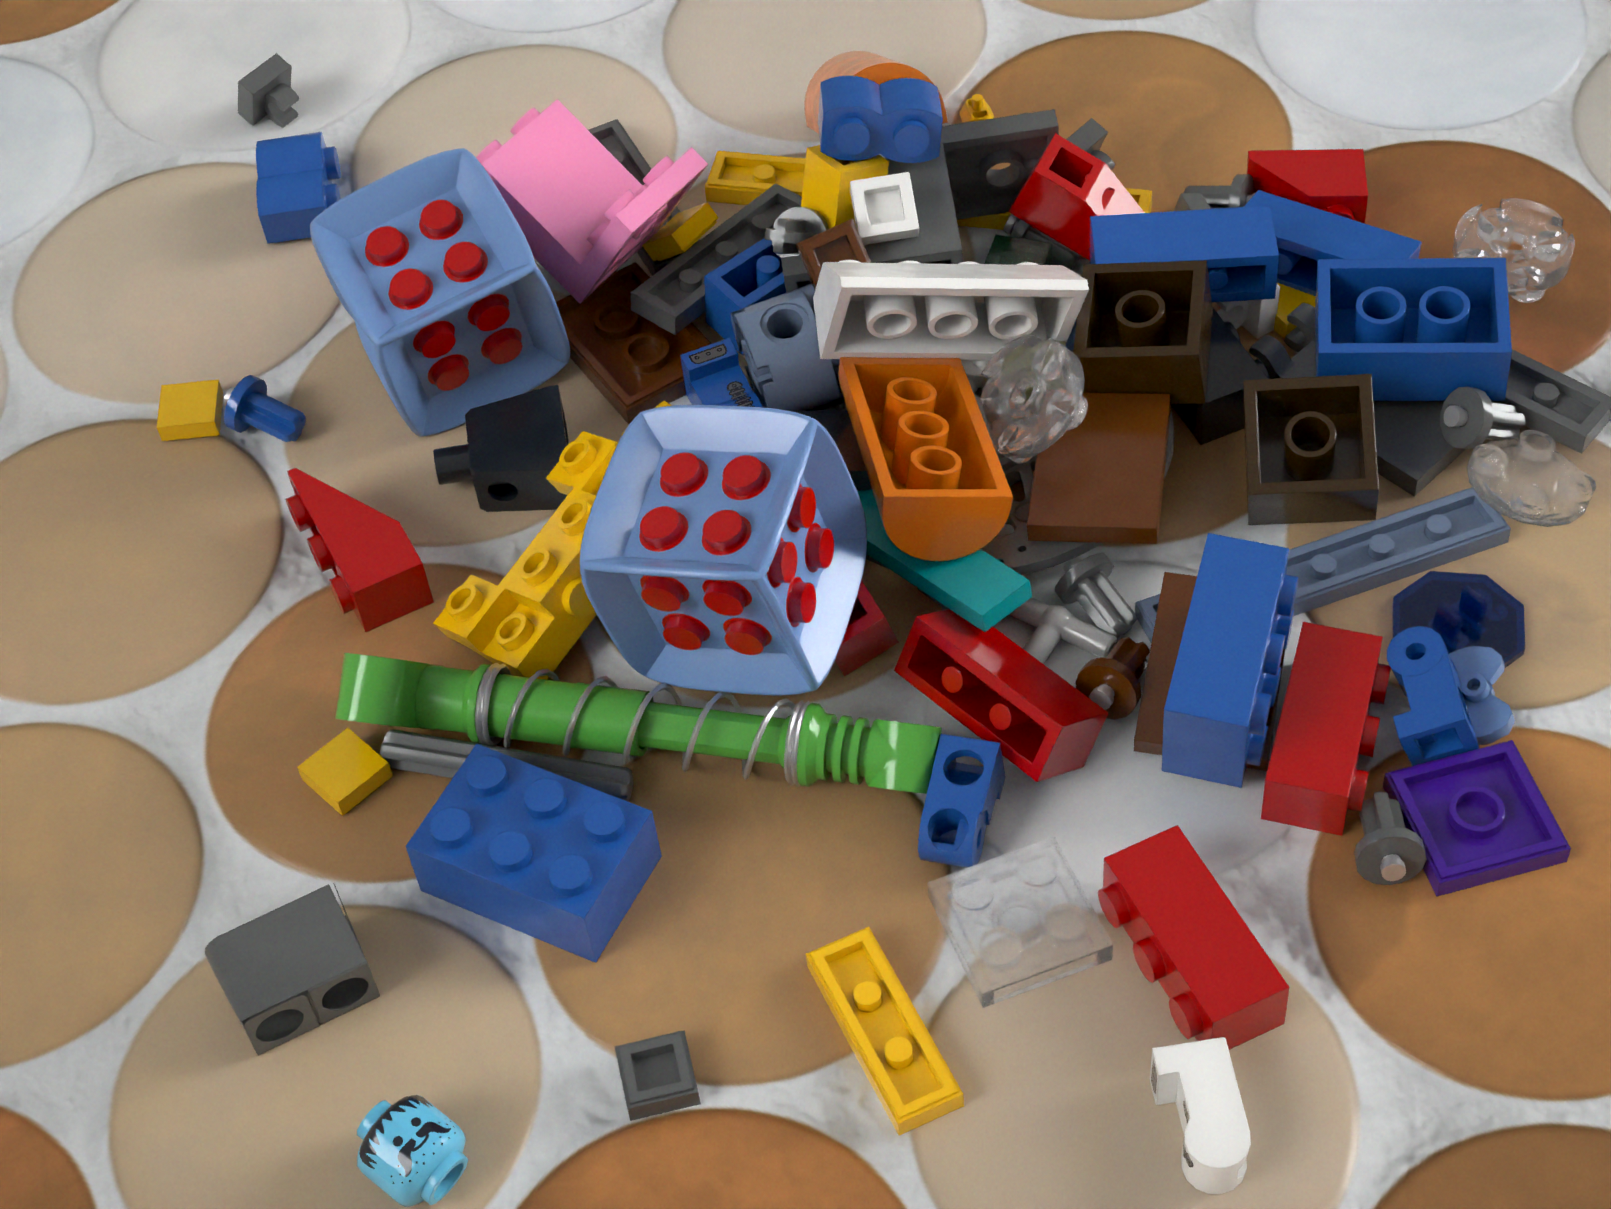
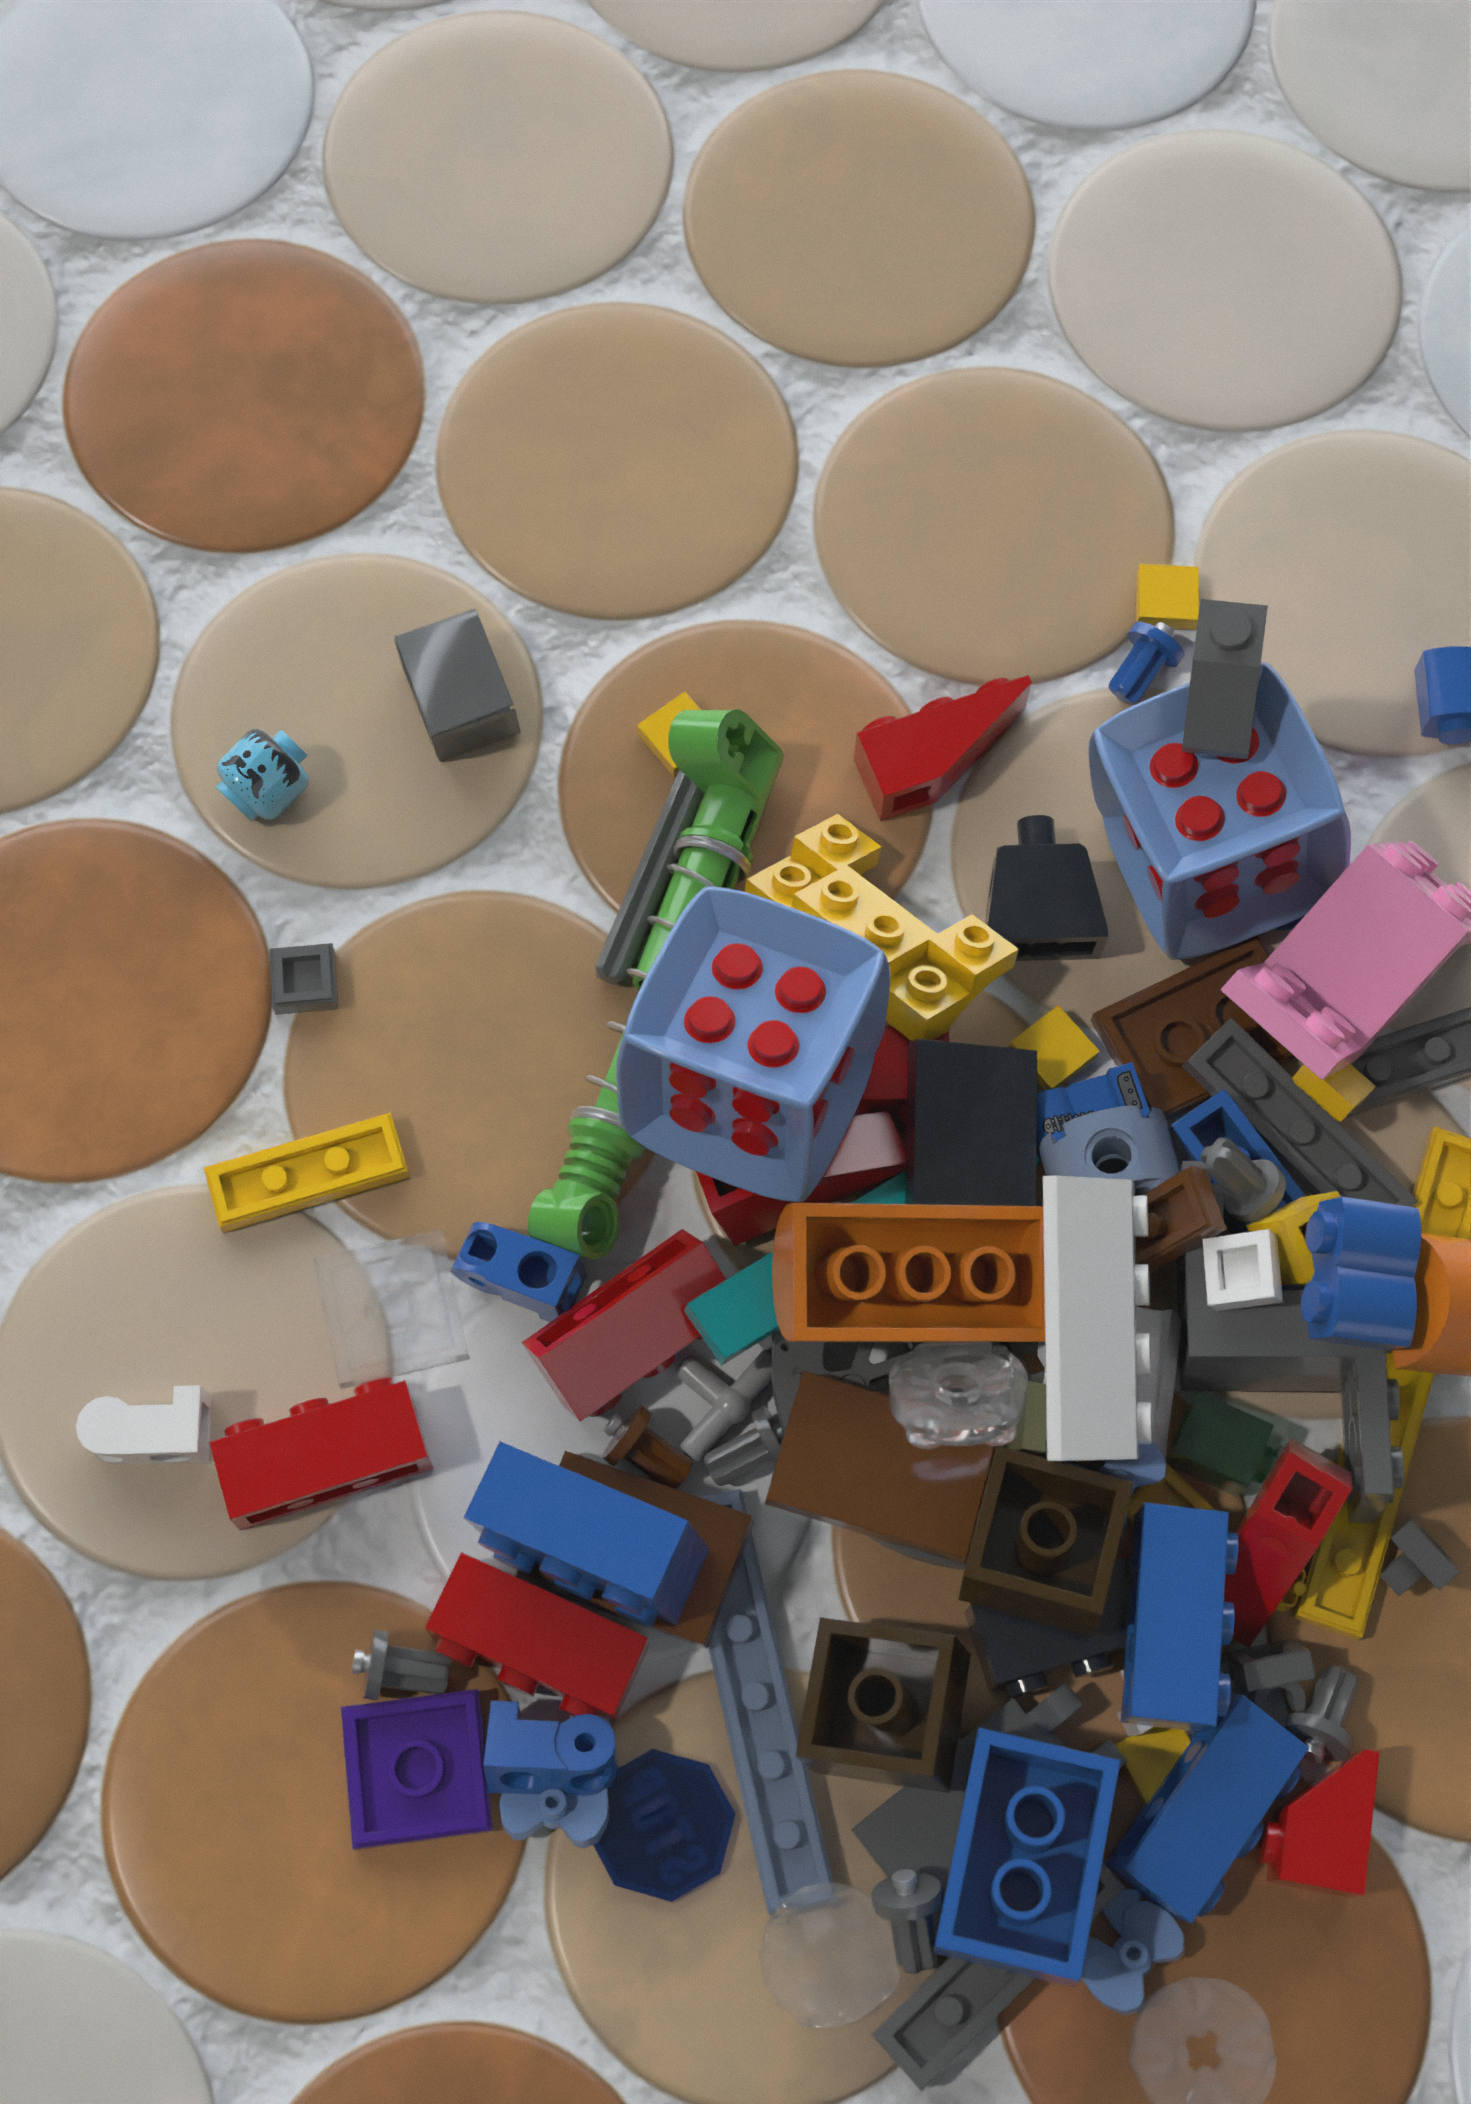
camera: 90 degrees right, 20 degrees up
(333, 227) = (1224, 678): none -> dark grey slope
(535, 851) = (538, 886): blue brick -> none

